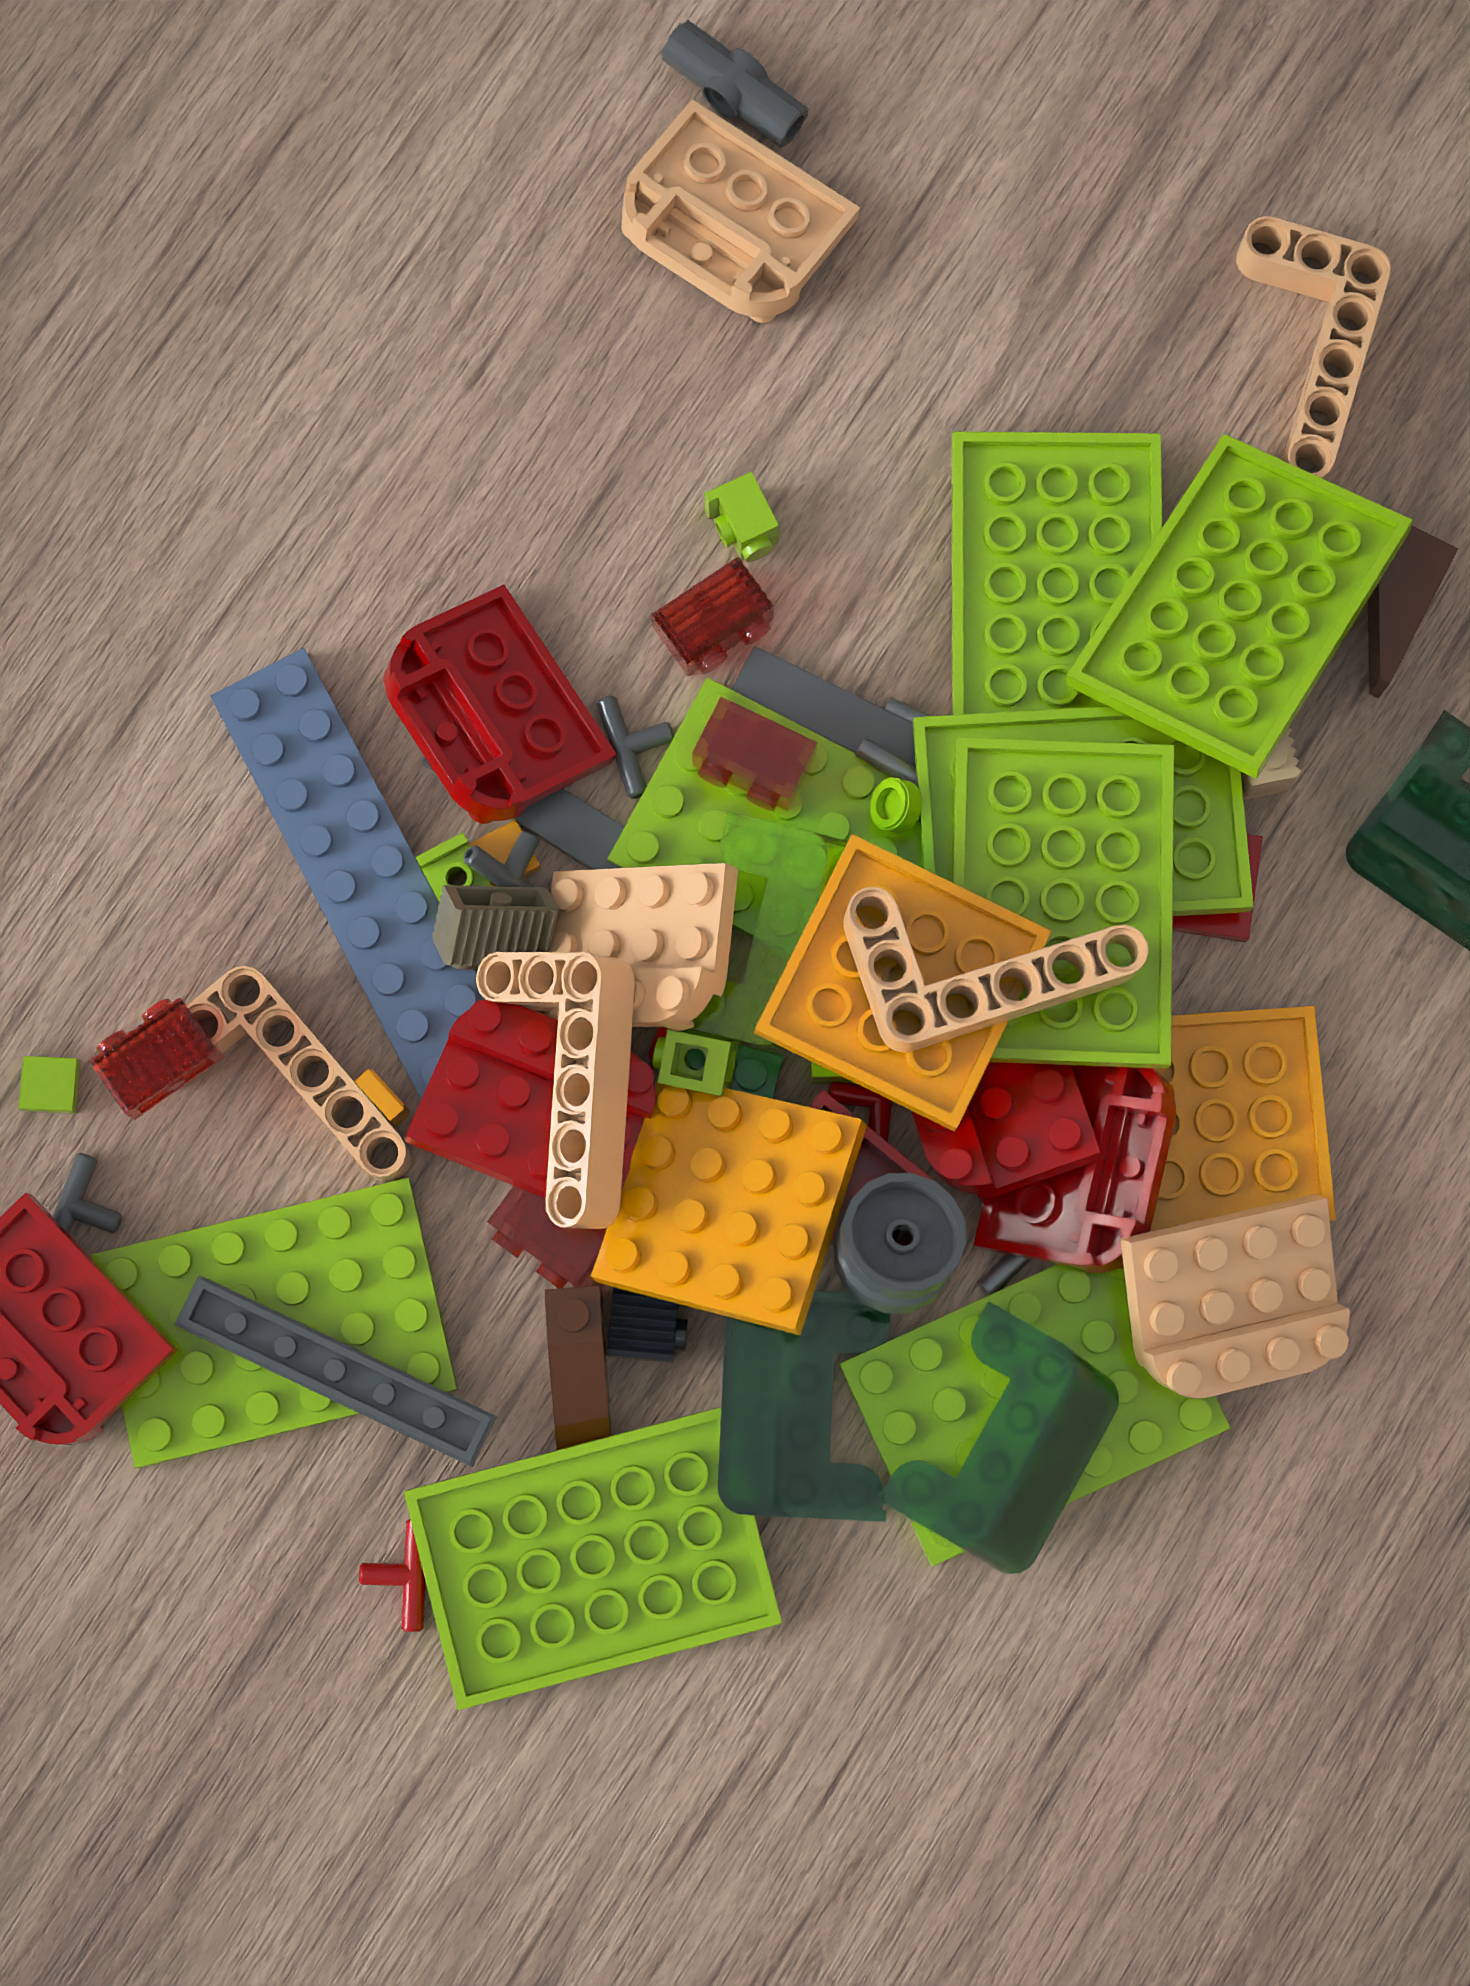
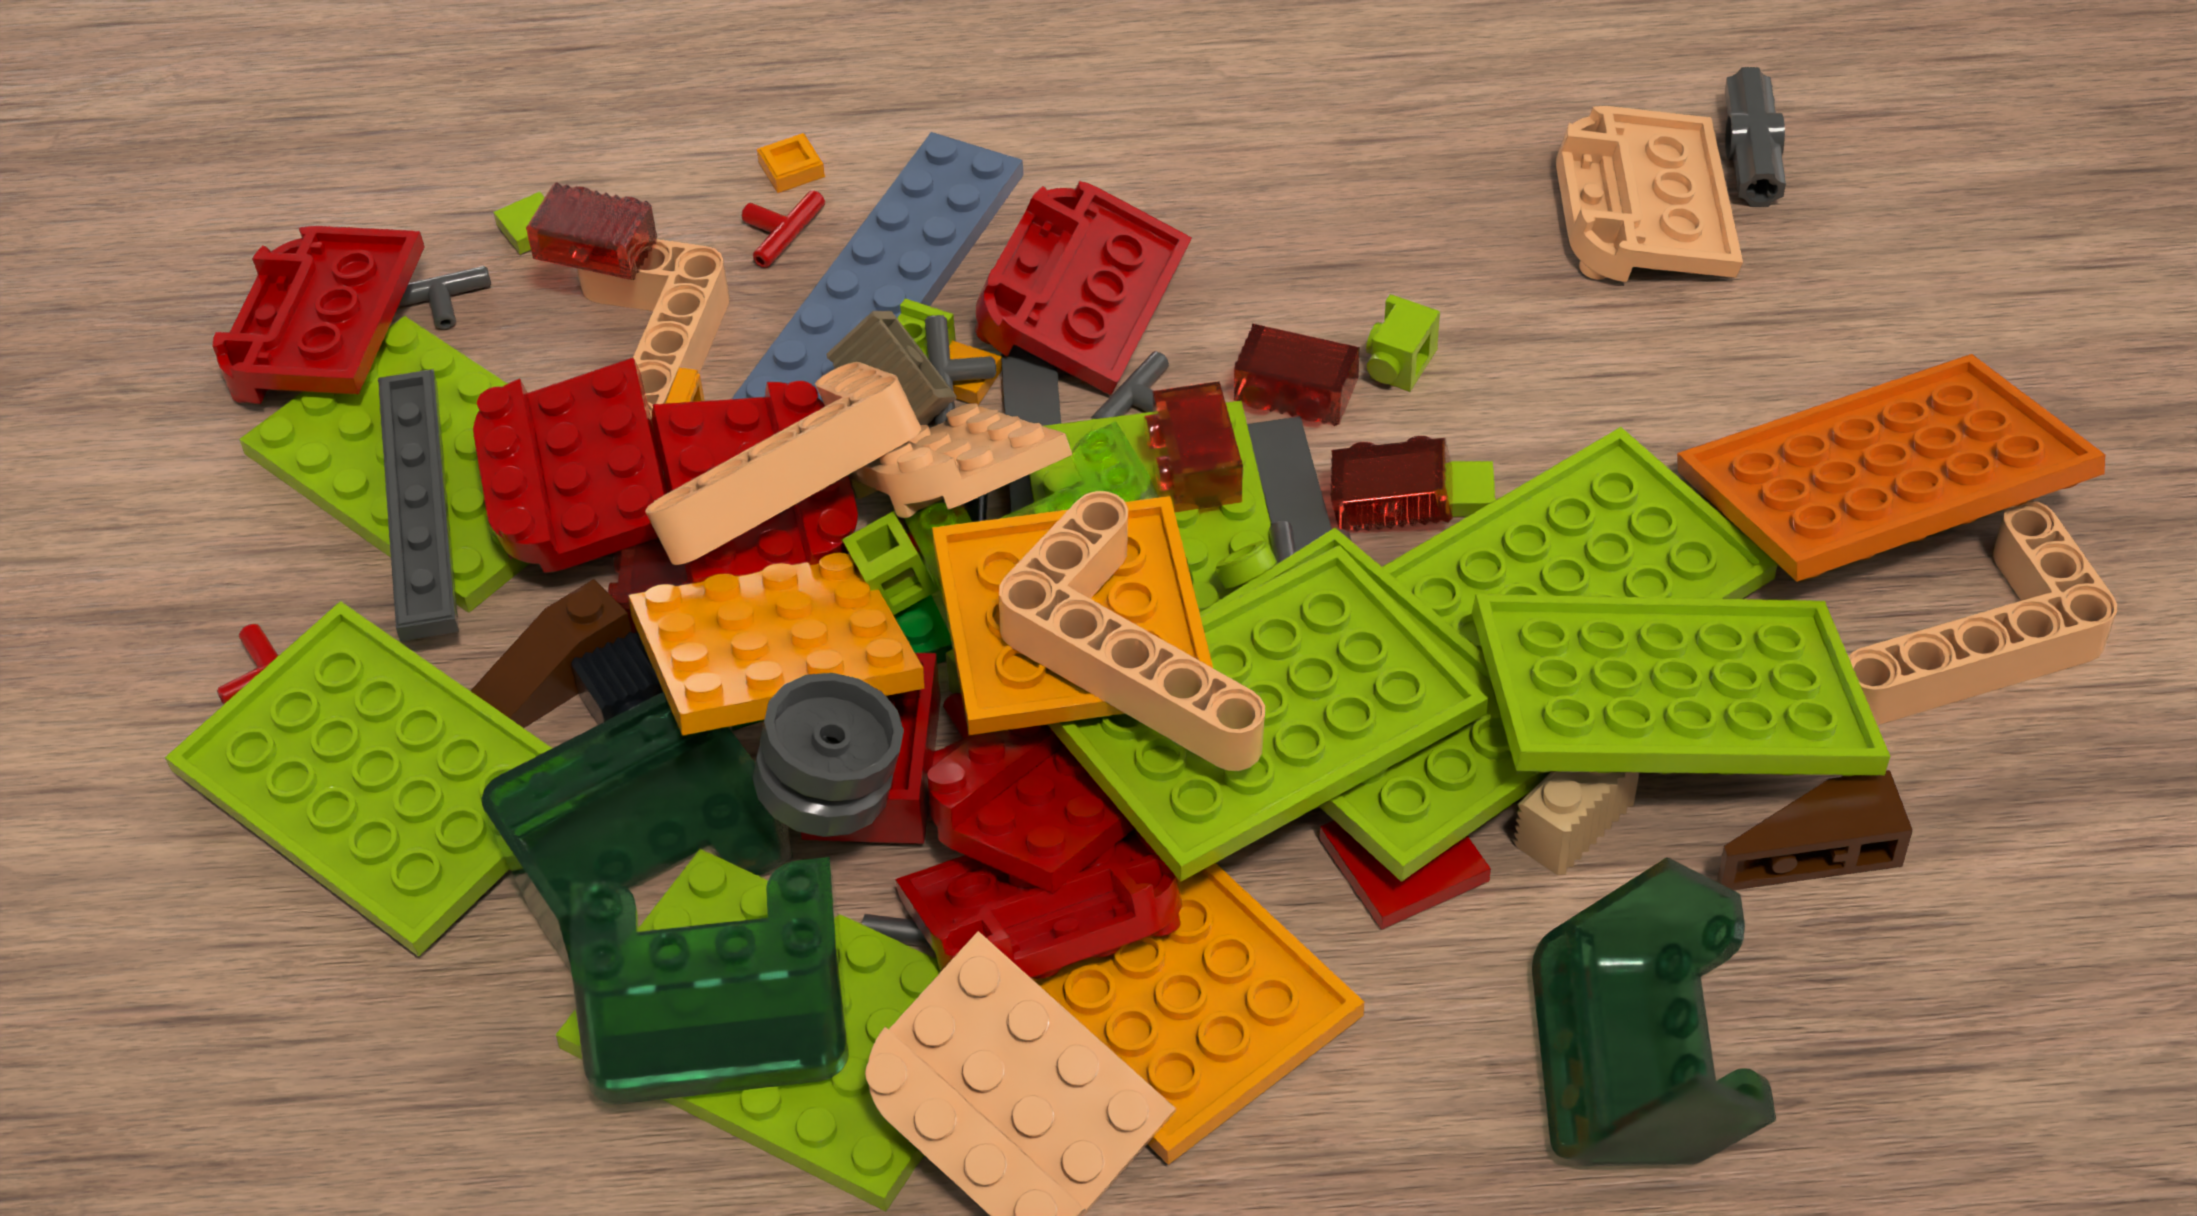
camera: 55 degrees right, 30 degrees down
(146, 828) = (790, 162): none -> light orange tile
(223, 884) = (782, 228): none -> red piece
(407, 1232) = (569, 466): none -> red plate
(881, 634) = (1392, 484): none -> clear red brick
(911, 581) = (1472, 486): none -> lime tile
(1142, 286) = (1888, 466): none -> orange plate

